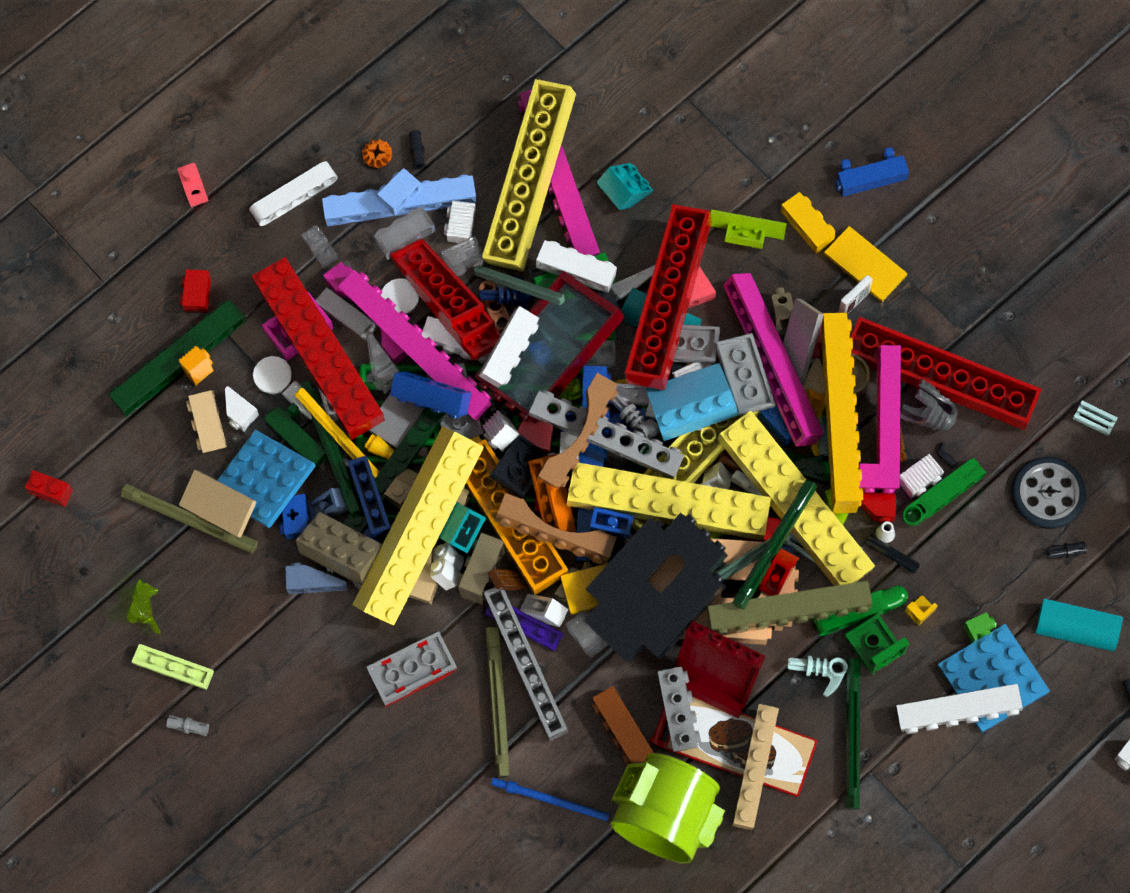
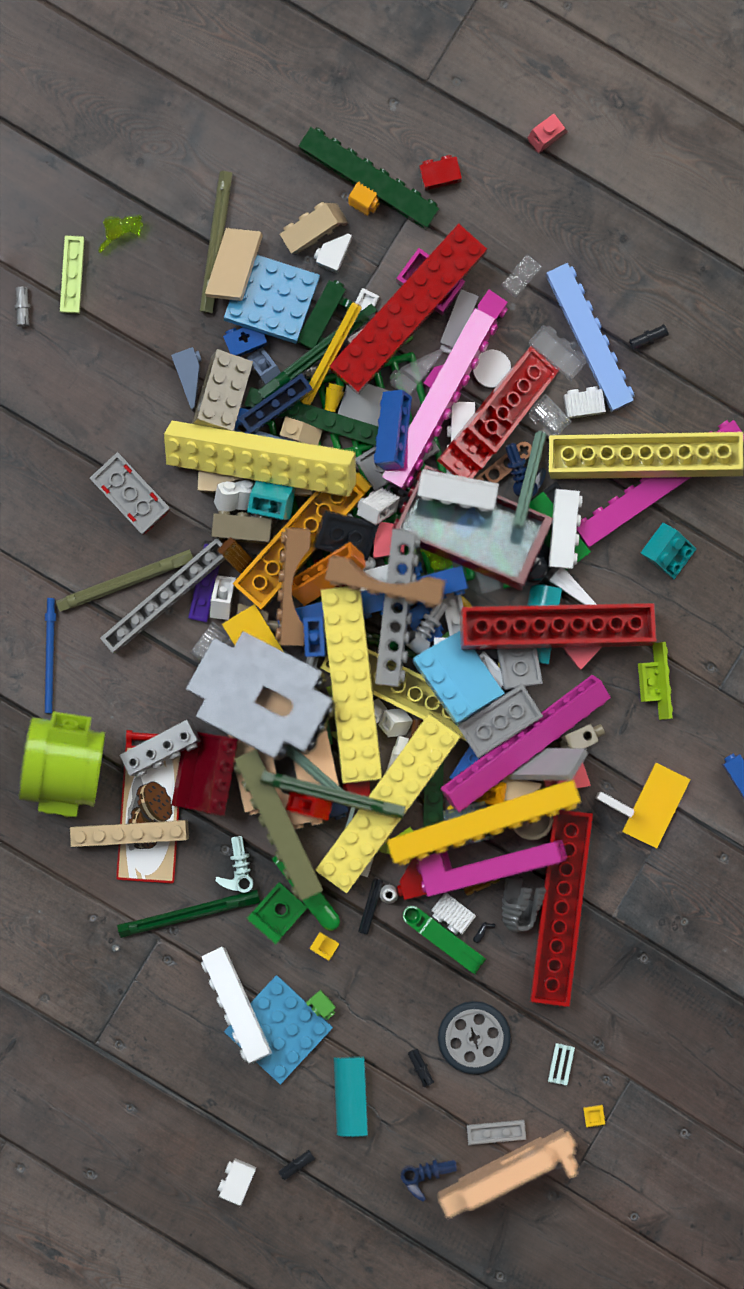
camera: 75 degrees right, 15 degrees up
(48, 488) = (205, 102): red brick -> none
(272, 375) = (378, 273): white tile -> none
(293, 193) = (567, 233): white beam -> none
(382, 159) = (628, 306): orange gear -> none
(399, 191) = (592, 334): light blue brick -> none
(621, 725) = (135, 699): dark orange brick -> none
(808, 222) = (682, 739): yellow brick -> none

